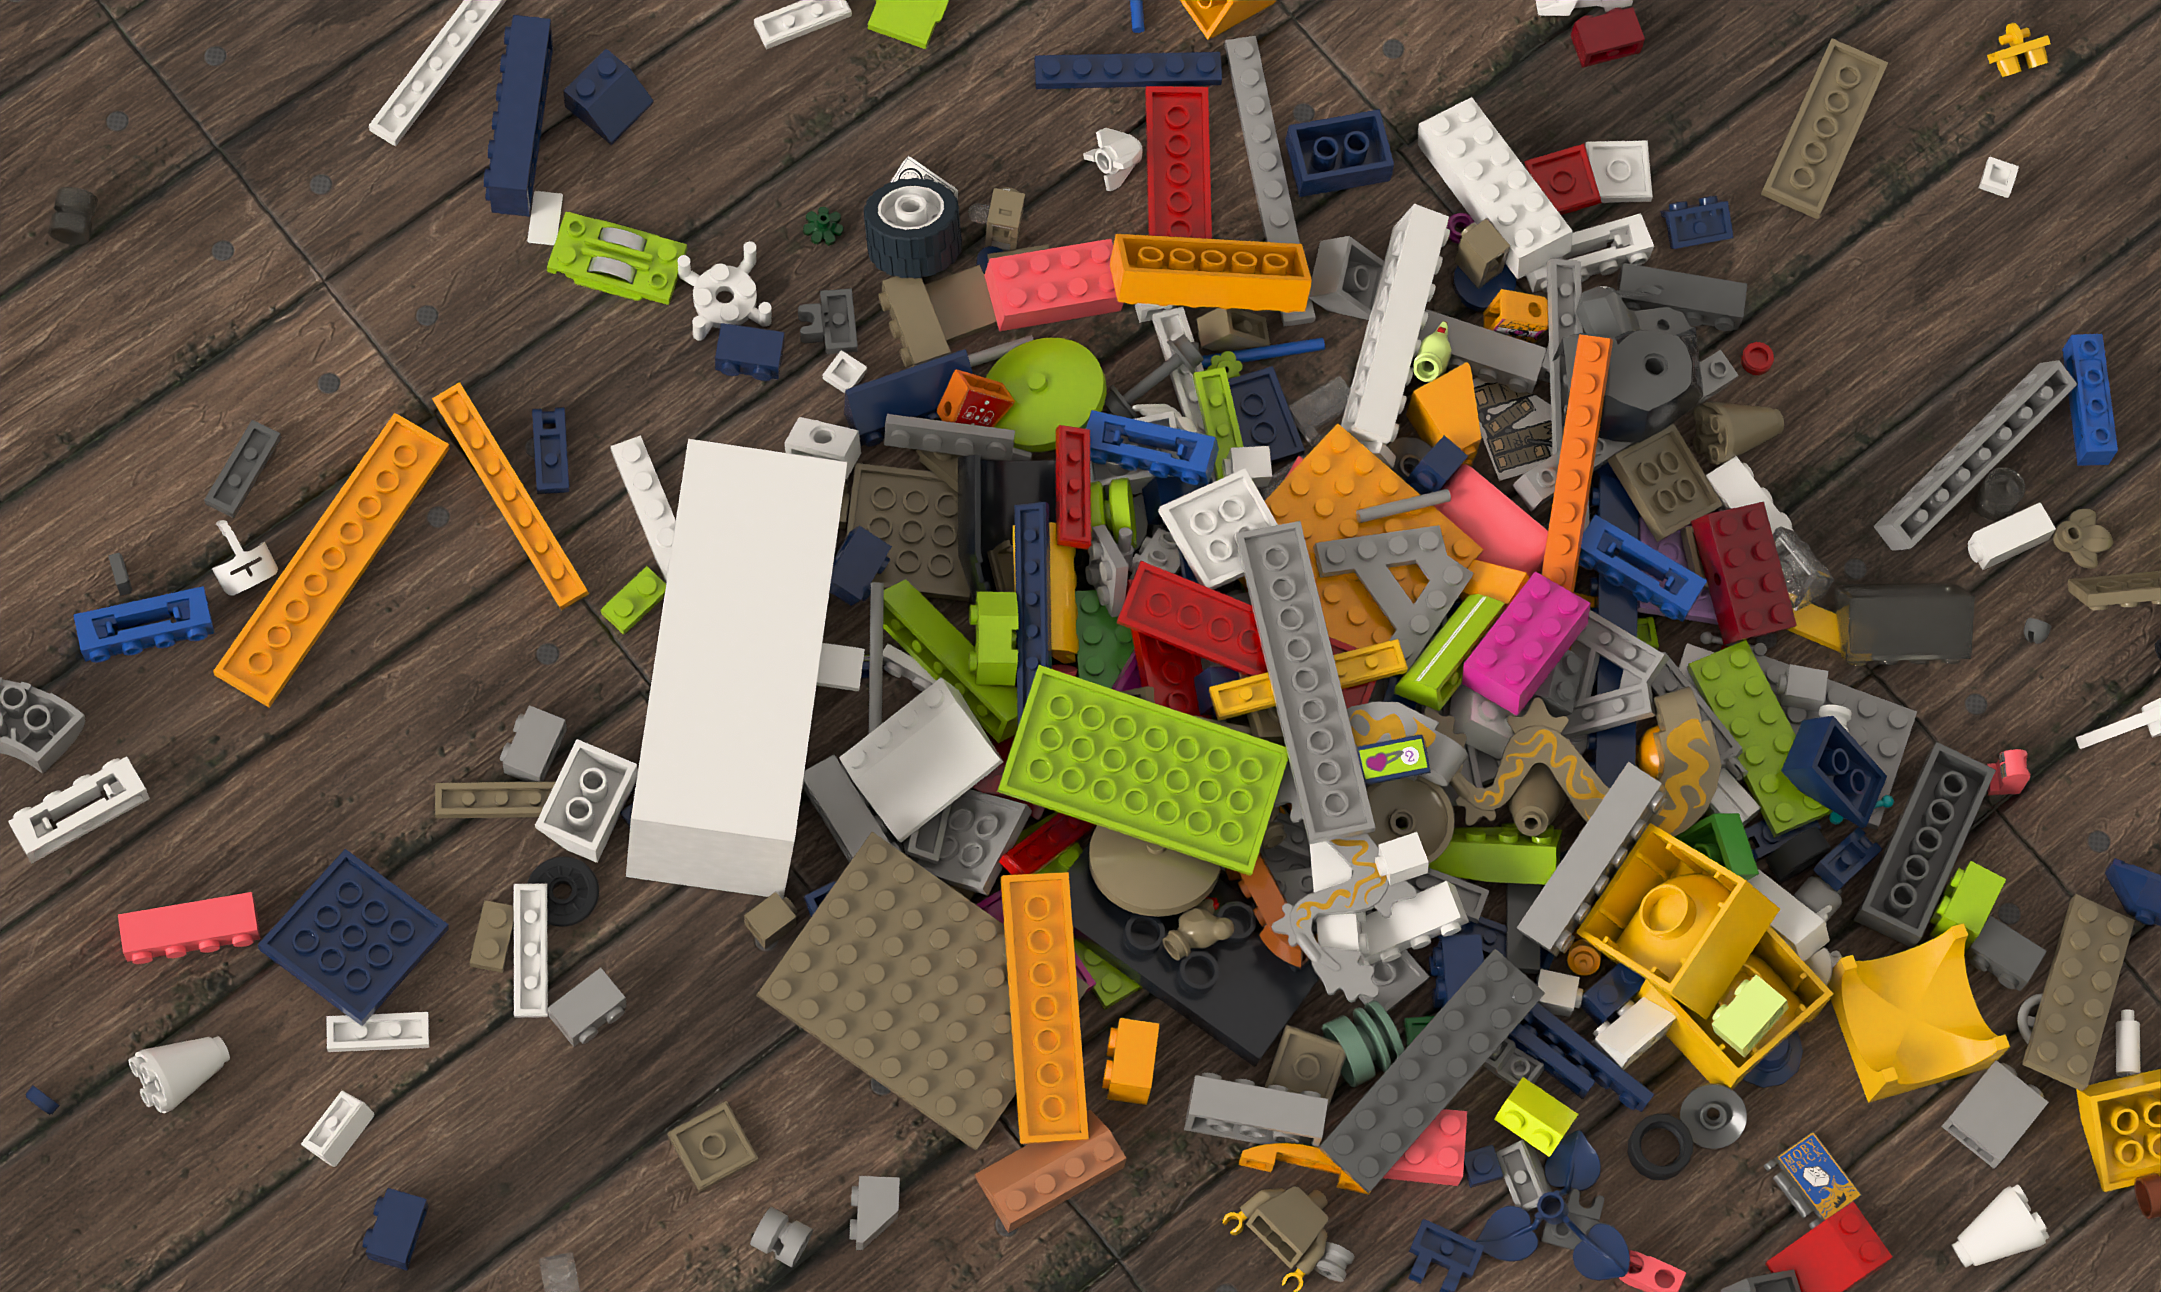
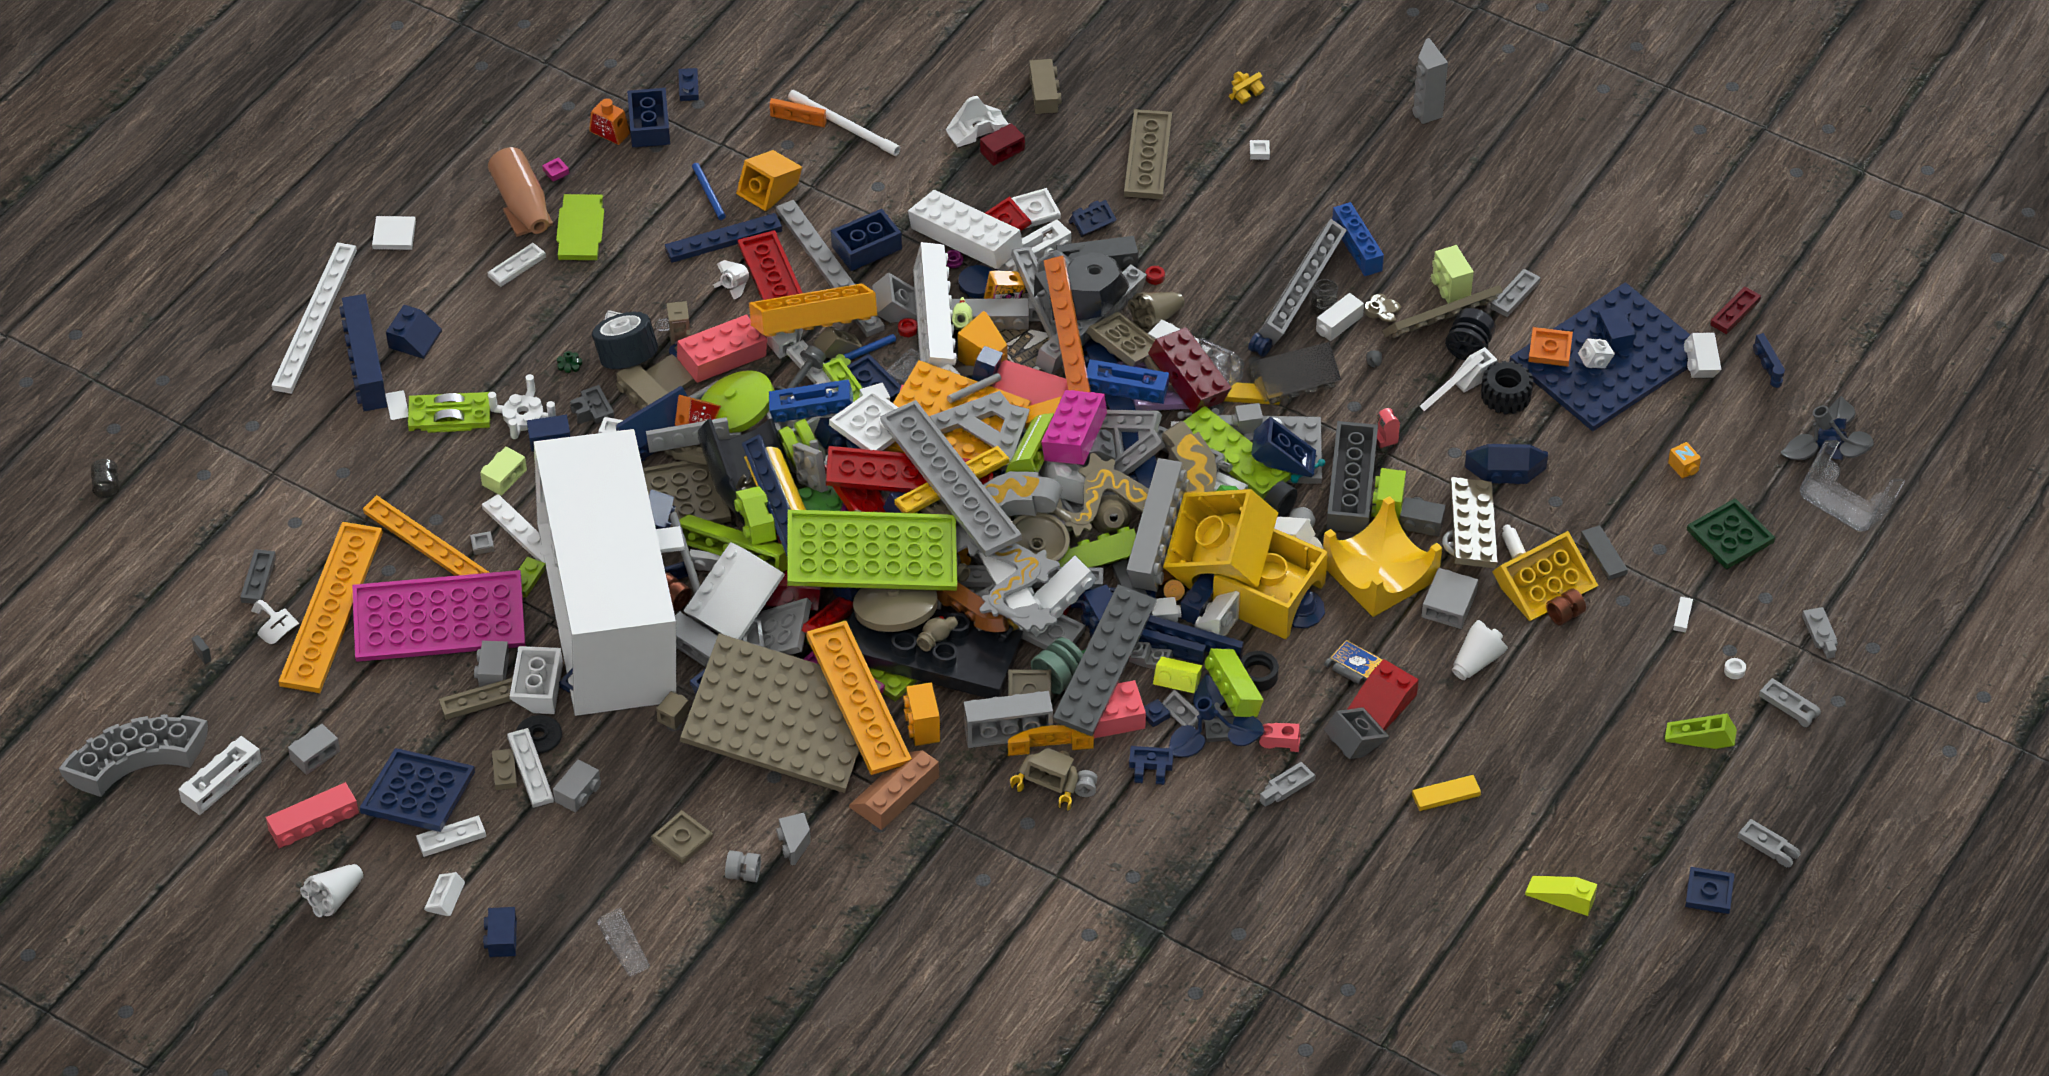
camera: 10 degrees left, 20 degrees down
(41, 1100) = (252, 930): dark blue tile -> none
(99, 640) = (226, 670): blue brick -> none
(227, 808) = (314, 749): none -> light grey brick
(481, 633) = (437, 615): none -> dark pink plate
(550, 451) = (446, 516): dark blue plate -> none
(589, 516) = (482, 543): none -> light grey tile
(660, 397) = (503, 471): none -> yellowish green brick
(838, 710) = (679, 592): none -> copper wheel
(1073, 487) = (773, 427): red tile -> none
(1349, 331) = (907, 327): none -> red tile
(1394, 759) = (1019, 496): slope -> none
(1402, 859) = (1044, 545): white brick -> none
(1481, 252) = (971, 260): dark tan brick -> none
(1613, 1165) = (1234, 682): none -> lime brick
(1719, 1130) = (1289, 636): dark grey dish -> none
(1749, 1015) = (1282, 571): yellowish green brick -> none
(1847, 859) = (1309, 495): dark blue plate -> none
(1871, 547) = (1260, 344): none -> dark blue wheel

